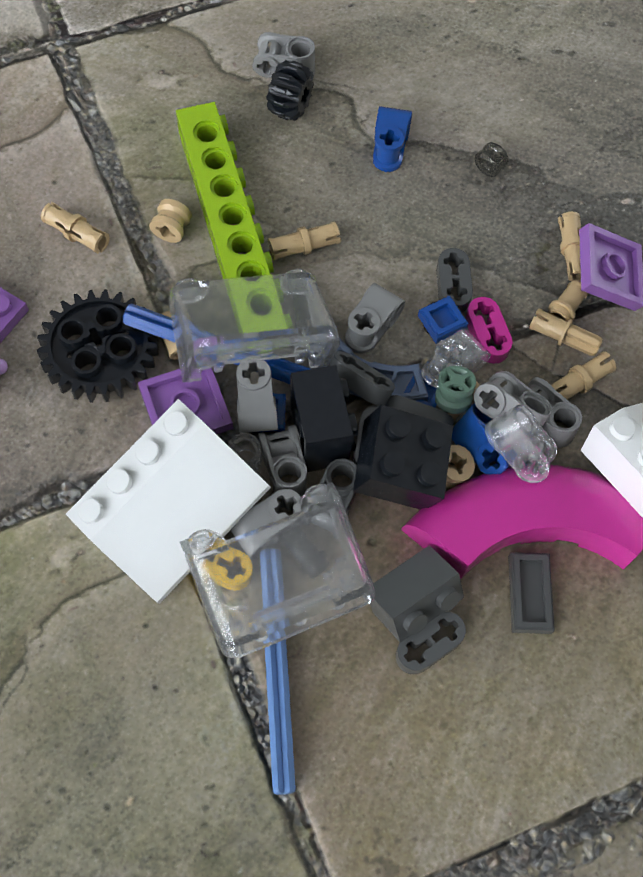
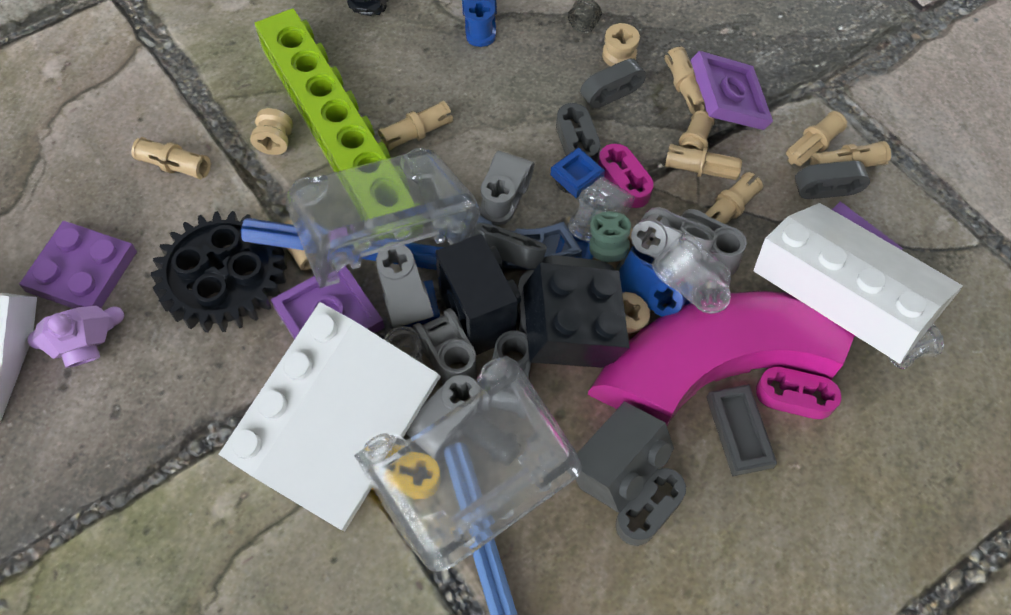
camera: 10 degrees left, 5 degrees down
(500, 235) = (613, 83): none -> dark grey beam
(510, 202) = (620, 43): none -> tan wheel
(592, 569) = (798, 392): none -> dark pink beam

